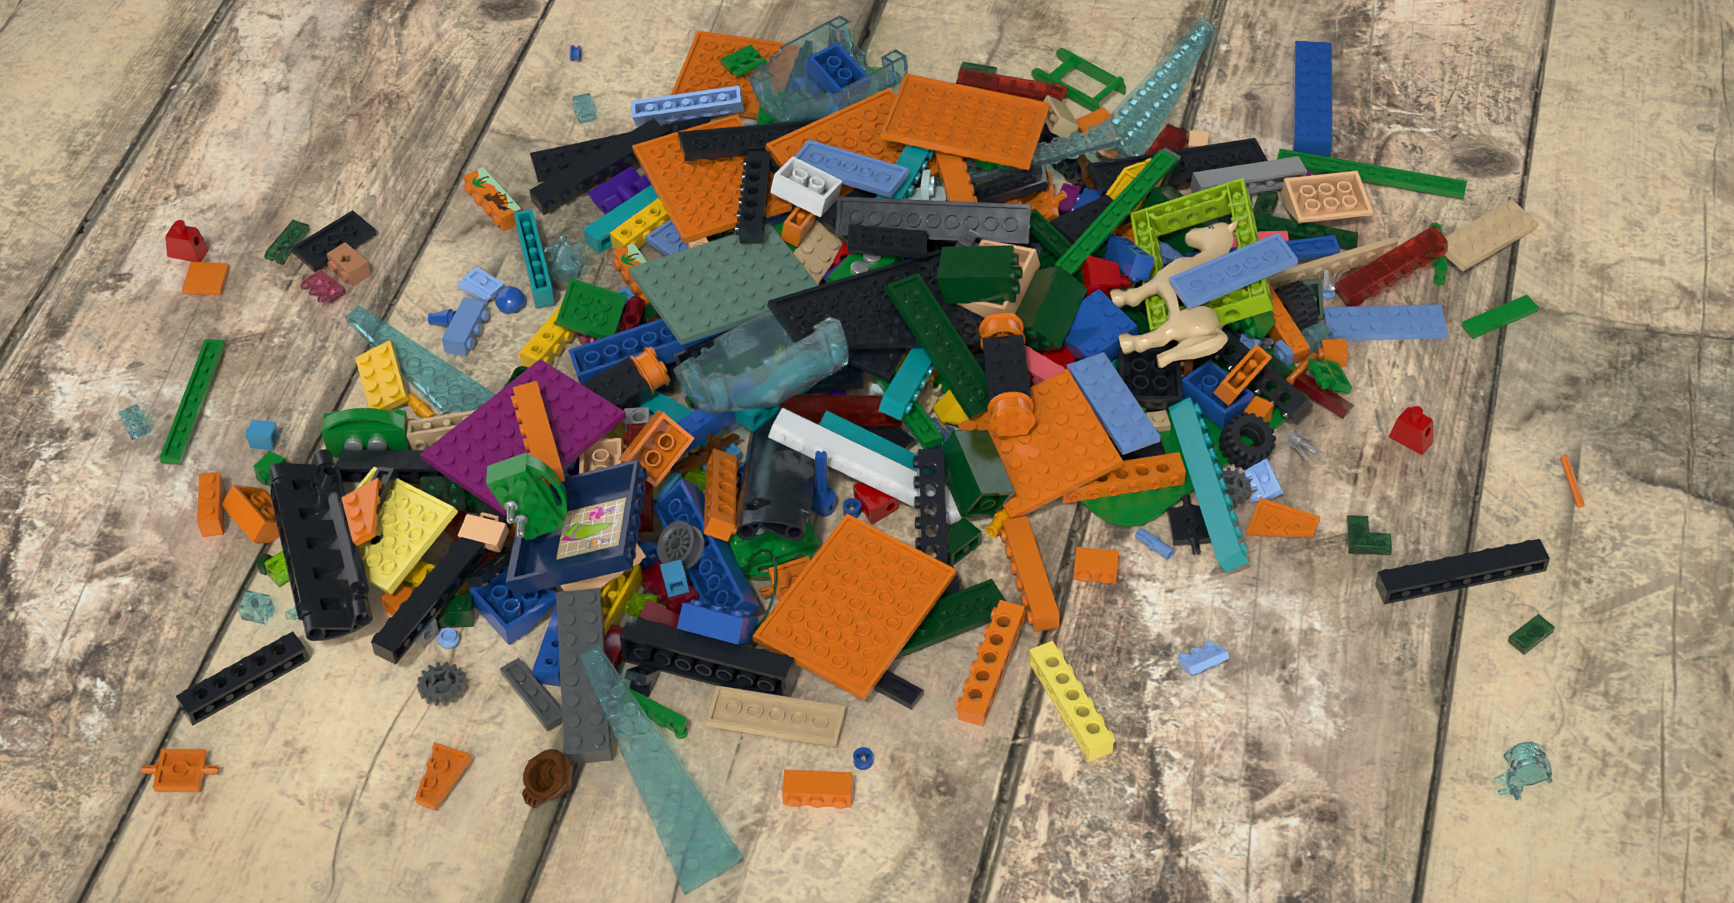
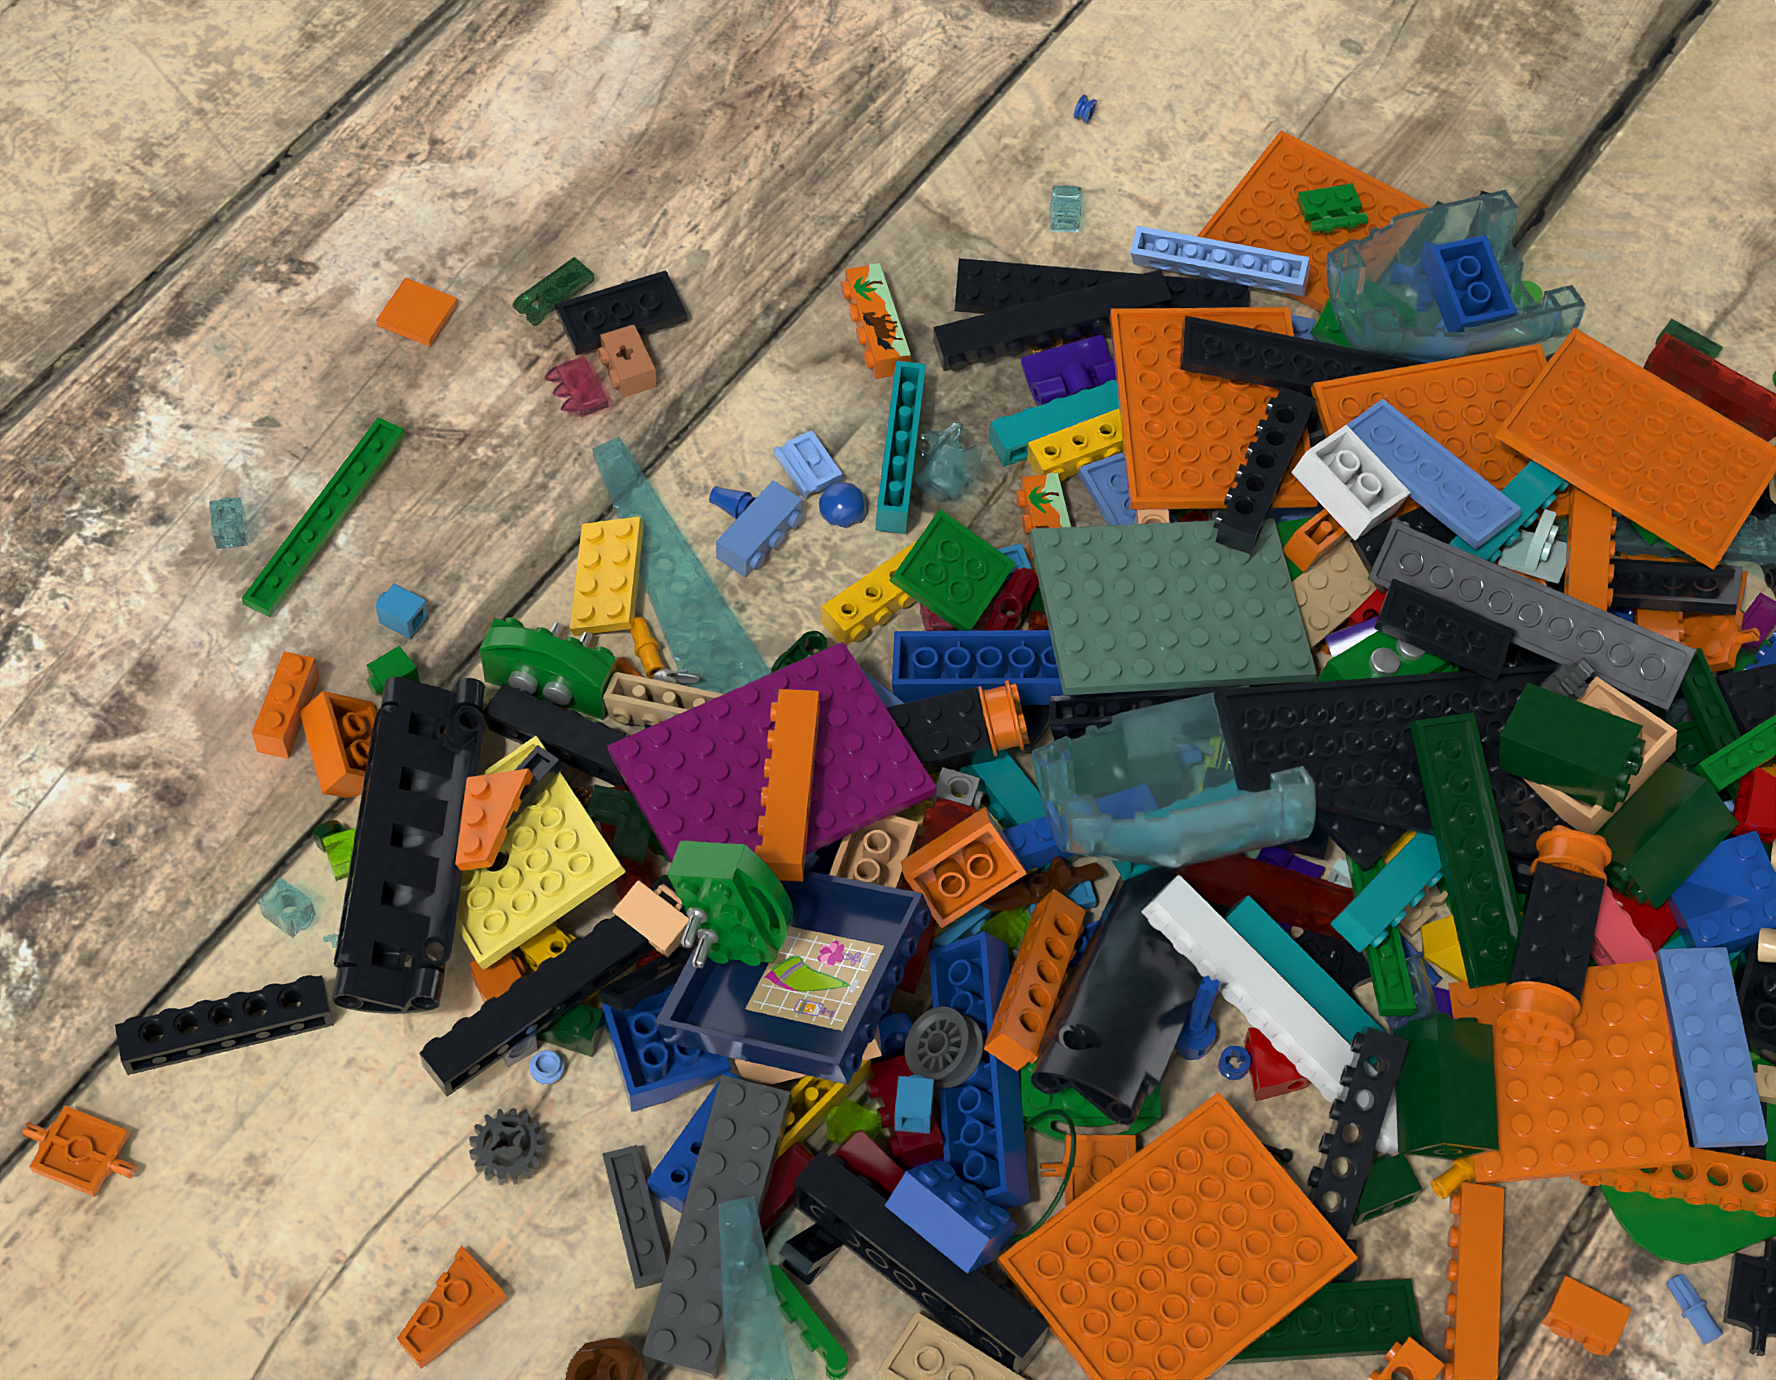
camera: 15 degrees right, 10 degrees up
(185, 243) = (407, 246): red torso -> none

